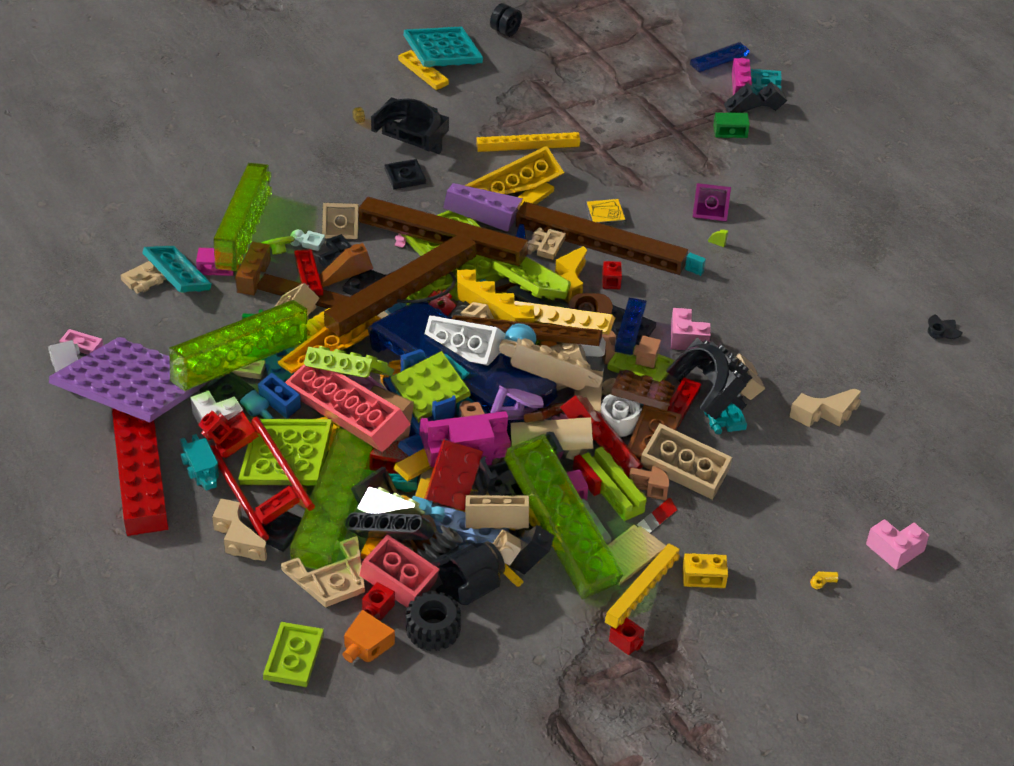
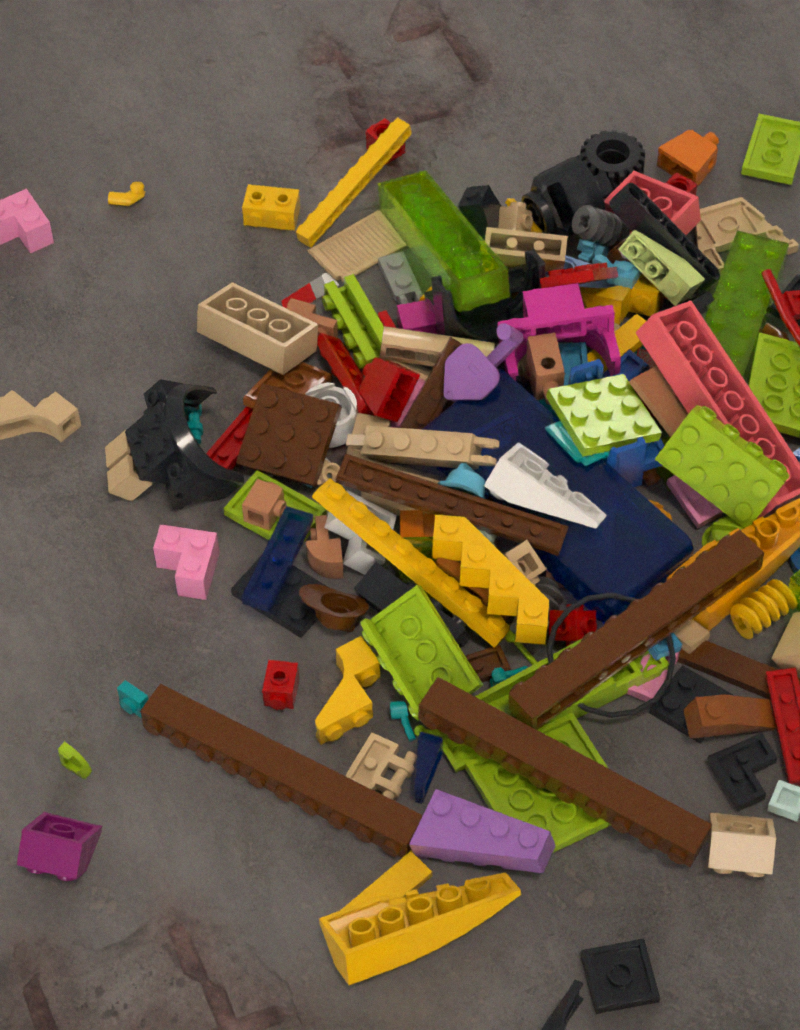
camera: 170 degrees left, 10 degrees up
(606, 212) = (257, 843): yellow tile -> none

